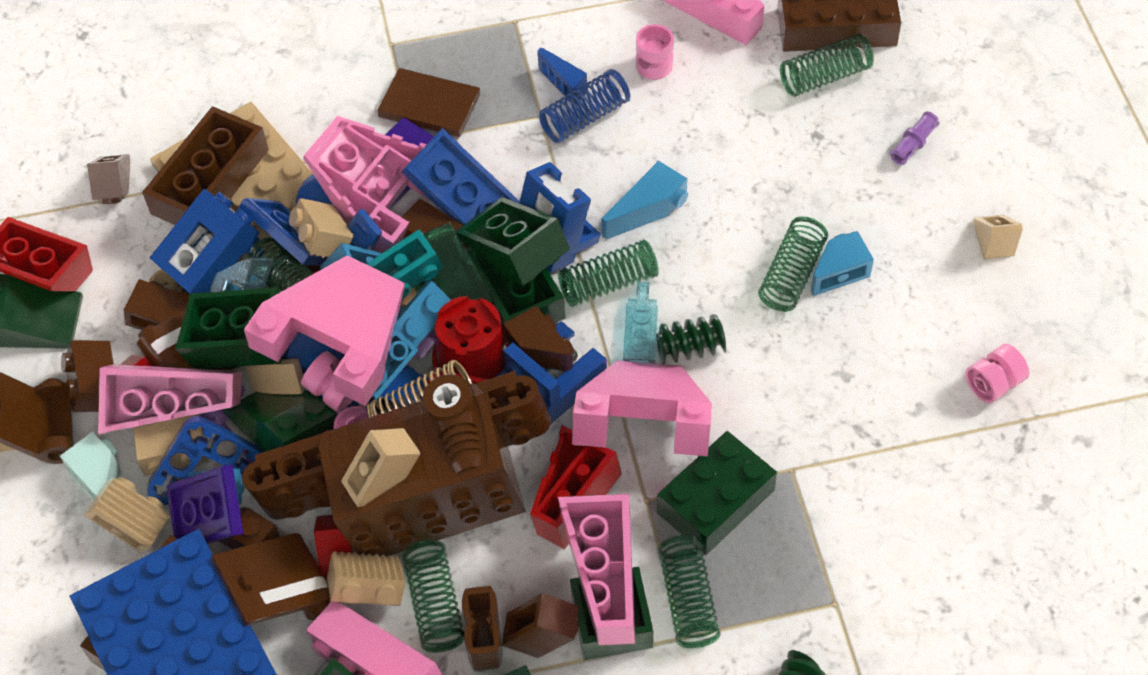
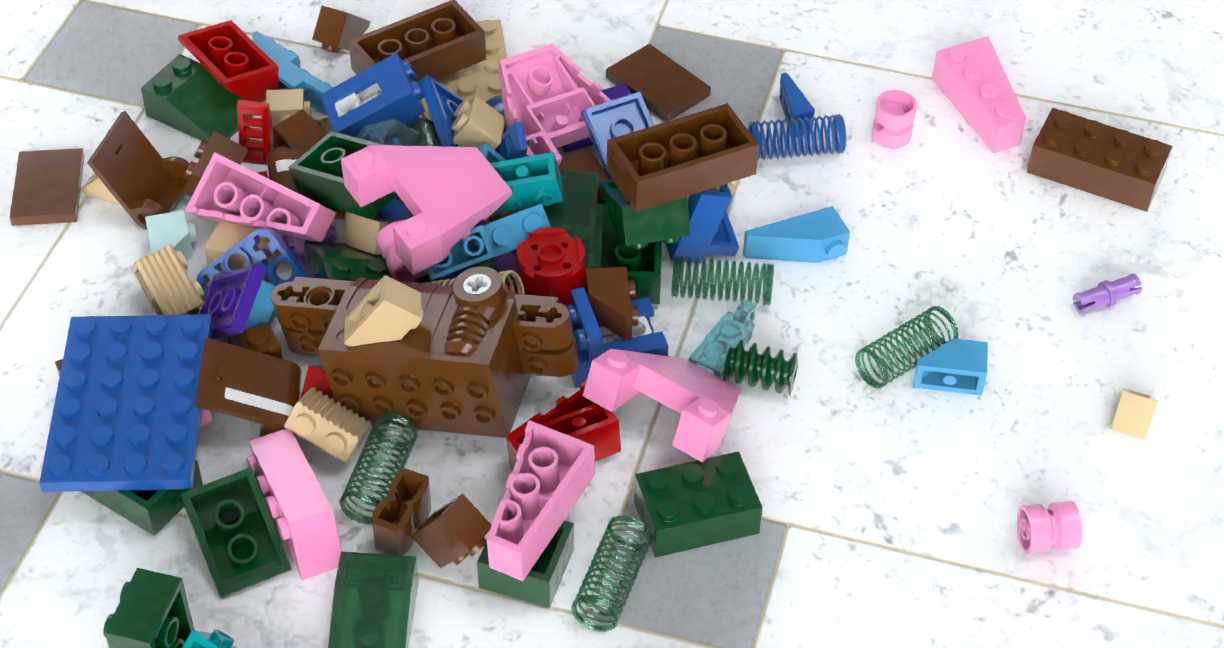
camera: 25 degrees right, 10 degrees down
(105, 323) = (257, 148): none -> red slope
(106, 251) = (291, 74): none -> dark azure slope
(114, 282) = (286, 103): none -> tan brick
(537, 185) = (681, 157): none -> reddish brown brick
(856, 54) = (1099, 205): clear green piece -> none

